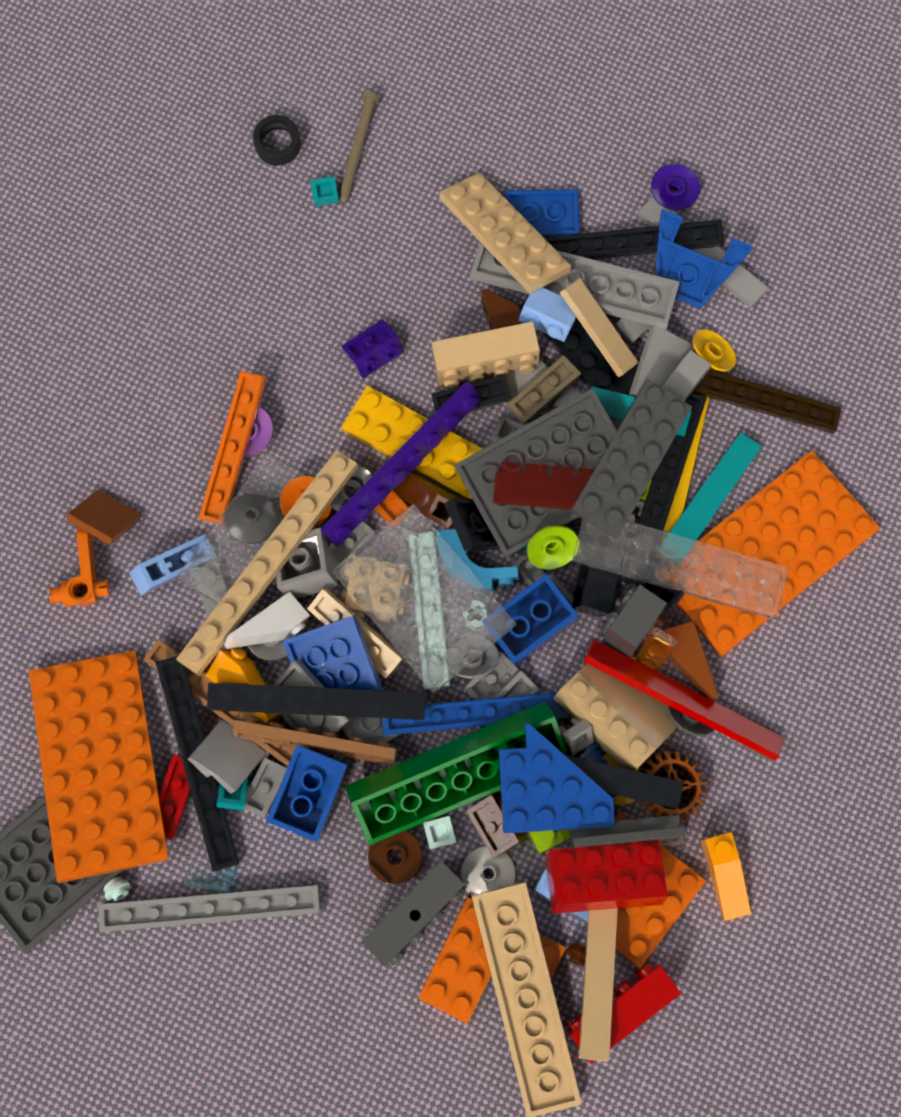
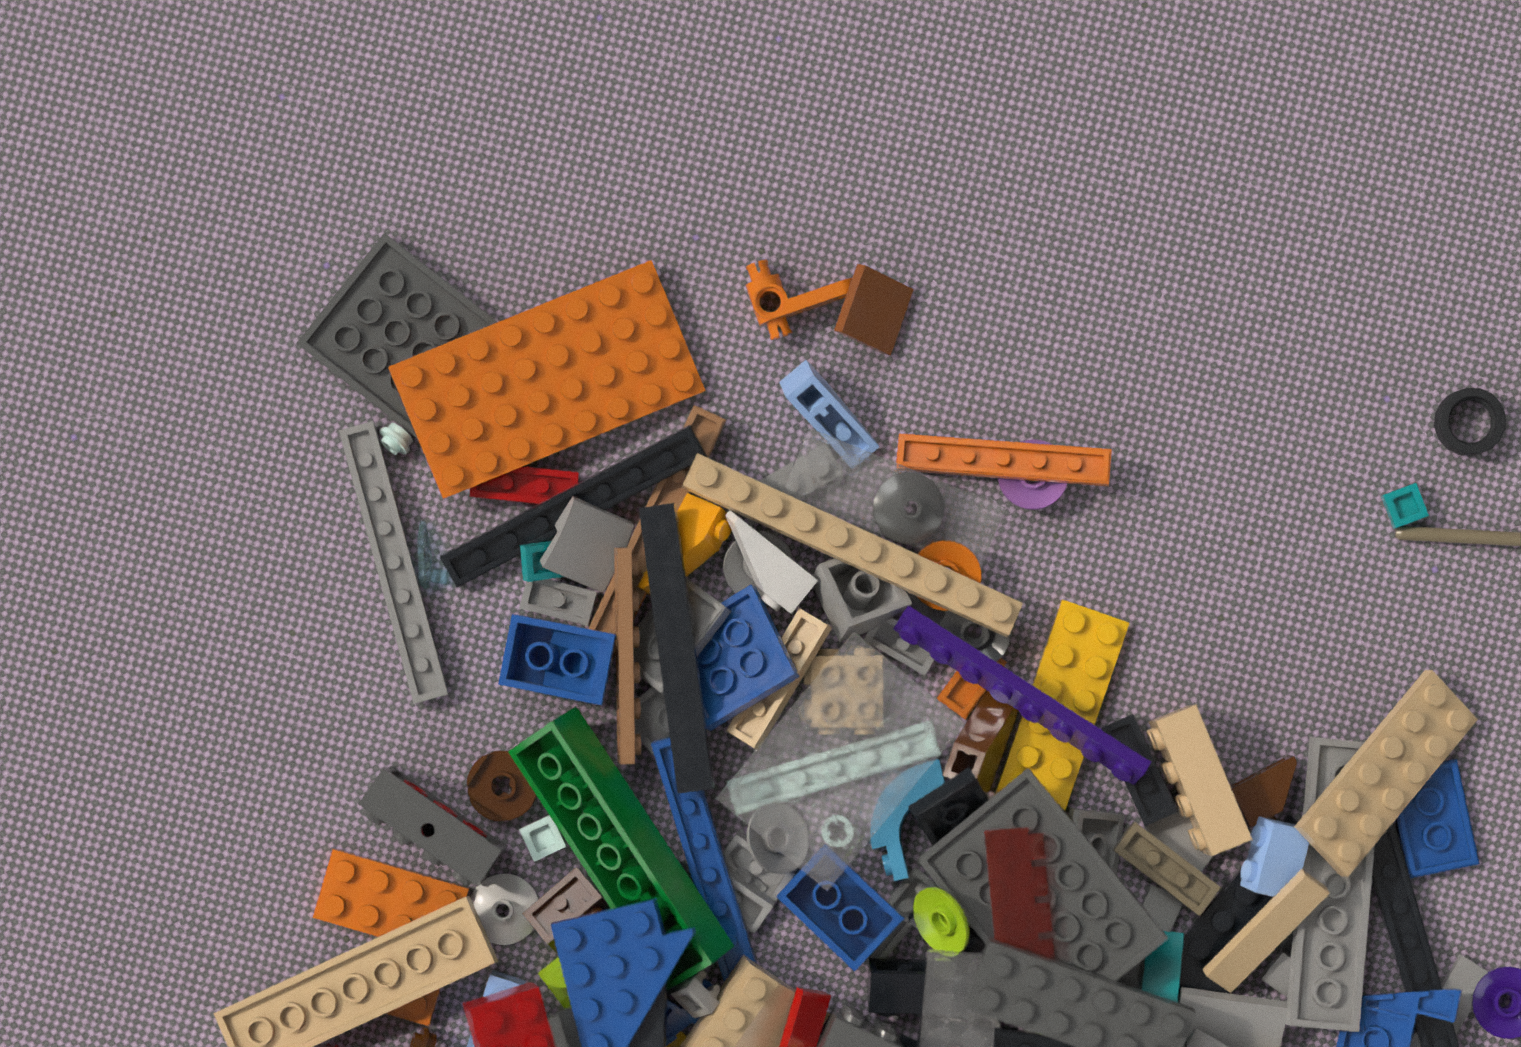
camera: 90 degrees right, 10 degrees up
(373, 348) = (1185, 620): dark purple bracket -> none

